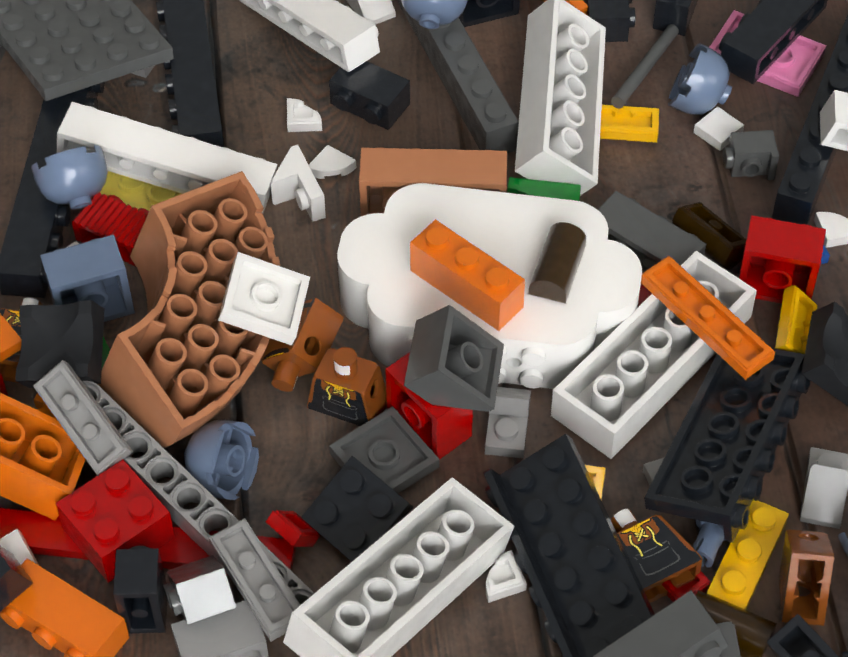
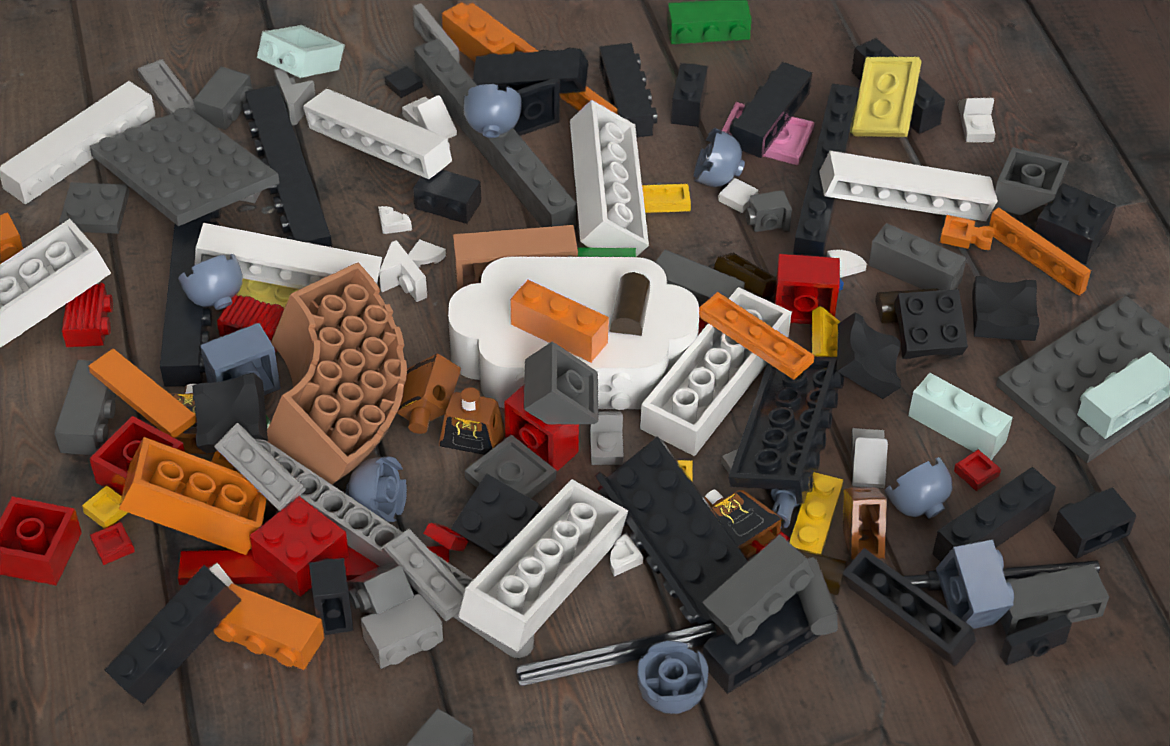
camera: 10 degrees left, 5 degrees down
(264, 298) = (395, 358): white plate -> none
(644, 66) = (671, 152): dark grey bar -> none

